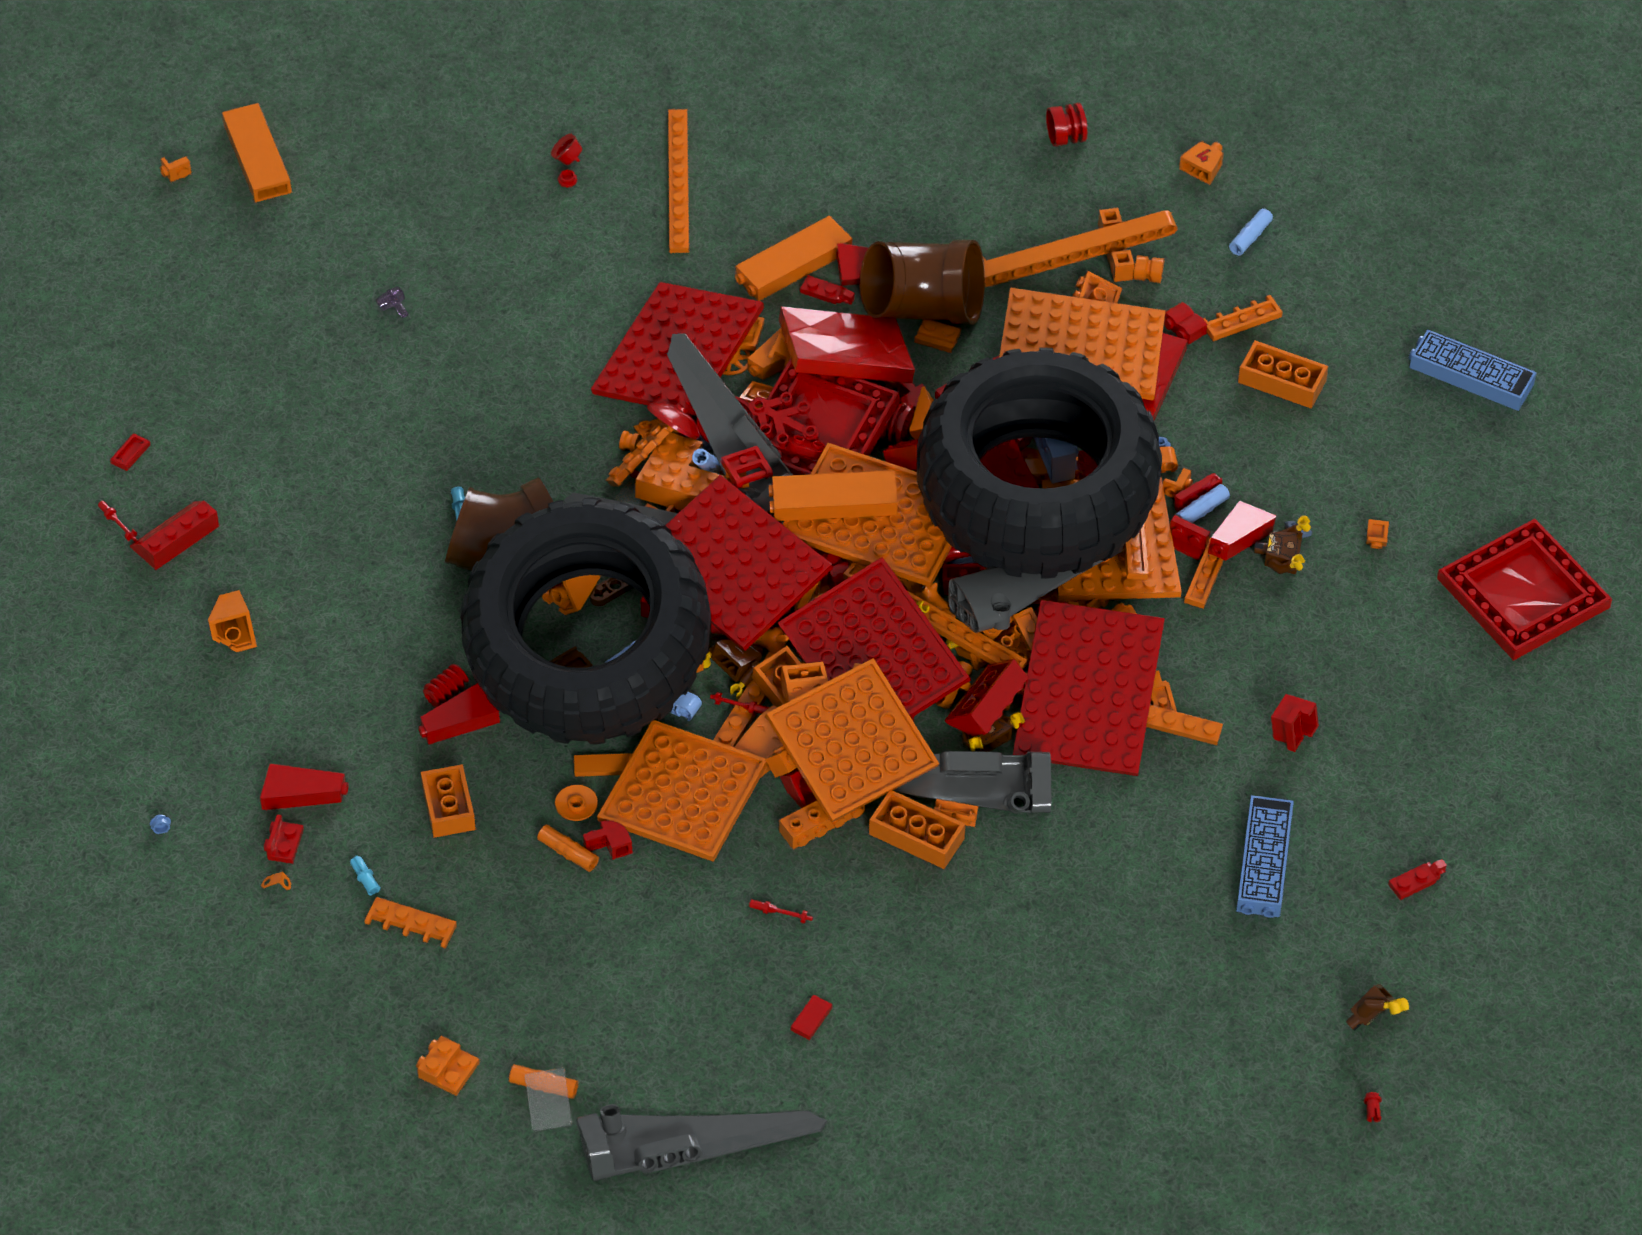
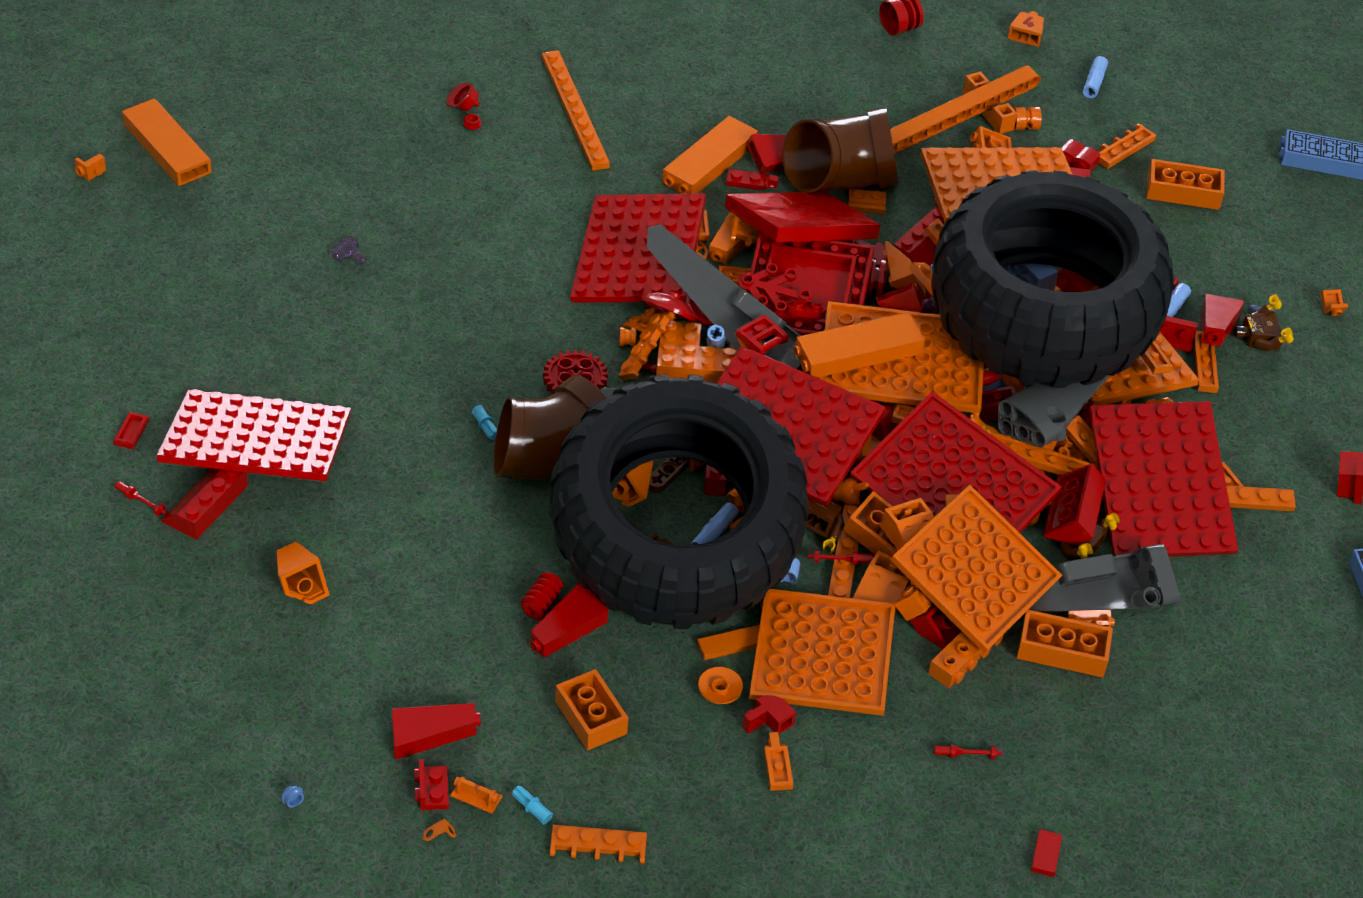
camera: 20 degrees left, 5 degrees down
(237, 478) = (255, 435): none -> plate
(319, 856) = (475, 795): none -> orange hinge
(564, 471) = (570, 364): none -> red gear
(568, 848) = (729, 732): orange axle -> none
(599, 885) = (777, 764): none -> orange hinge

